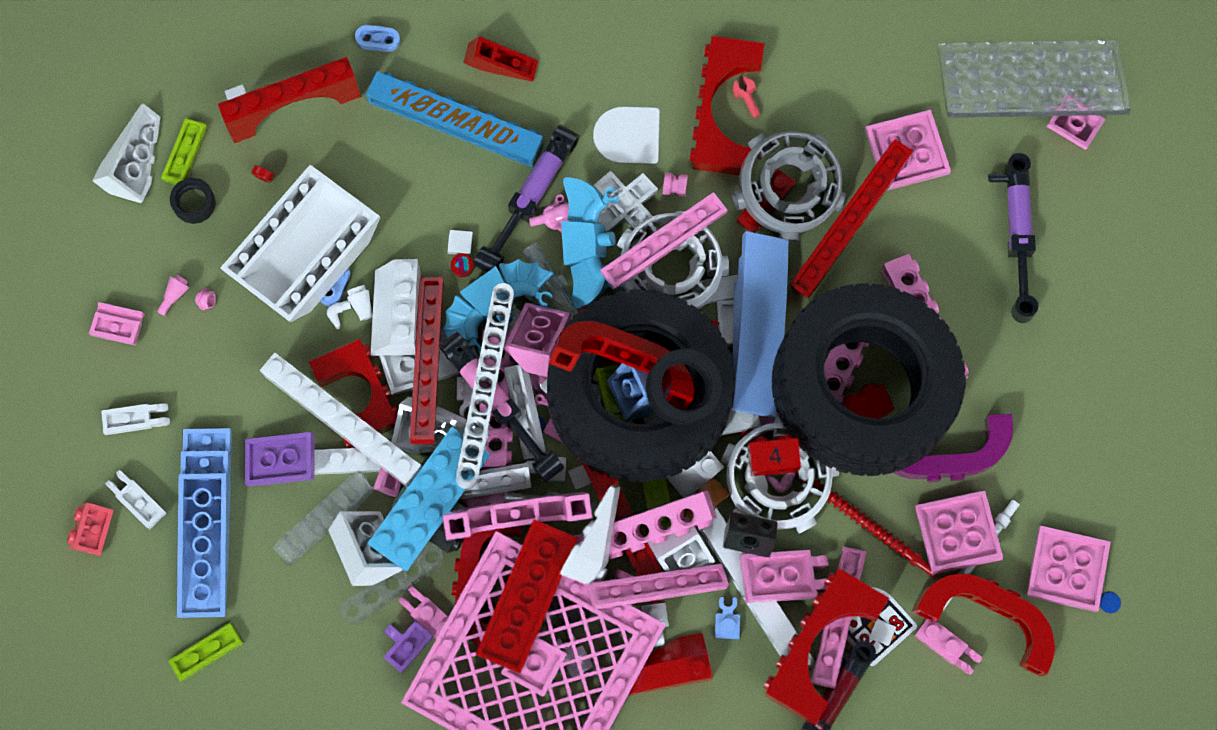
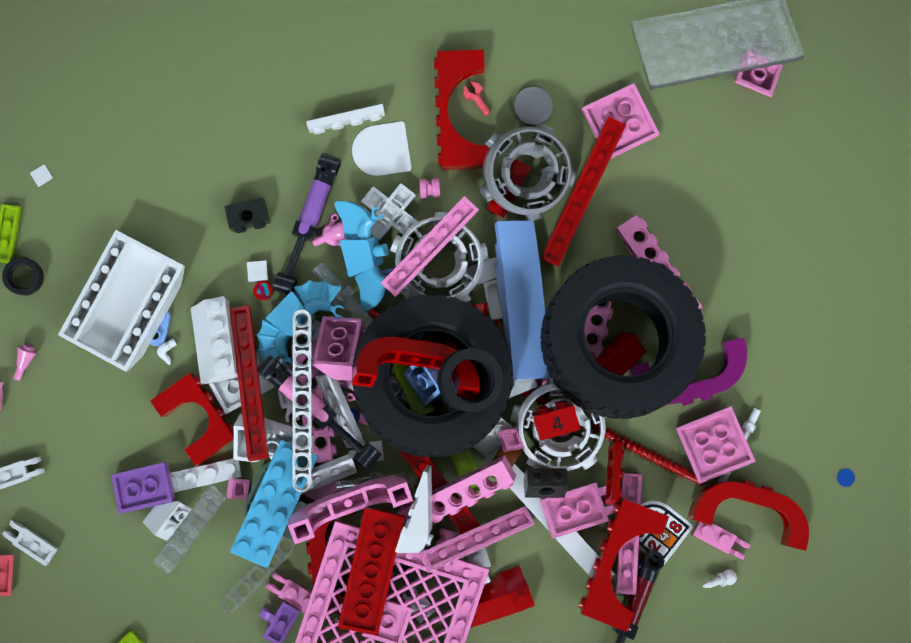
camera: 15 degrees left, 10 degrees up
(204, 523) = (91, 551): light blue slope -> none
(205, 299) = (52, 360): bright pink plate -> none
(248, 110) = (50, 194): red arch -> none
(262, 174) = (77, 242): red tile -> none
(300, 498) = (166, 518): none -> white slope
(341, 419) = (187, 448): white brick -> none
(350, 536) = (216, 542): white slope -> none
(360, 301) = (184, 339): white cone -> none
(378, 37) = (152, 103): light blue plate -> none
(450, 170) = (236, 212): none -> pearl dark grey brick
(454, 118) = (231, 163): dark azure brick -> none
(499, 60) = (260, 104): red slope -> none
(579, 477) = (394, 455): white sticker -> none
(593, 92) = (353, 117): none -> white plate
(682, 551) = (493, 507): white slope -> none
(717, 477) = (510, 440): none -> bright pink plate
(727, 624) = (538, 554): light blue plate -> none
(810, 115) = (533, 106): none -> light grey tile
(833, 542) = (614, 473): none -> red plate
(882, 632) = (667, 538): white sticker -> none
(948, 693) = (727, 577): none -> white bar
(1020, 228) = (728, 185): black piece -> none
(1068, 569) = (808, 457): bright pink plate -> none

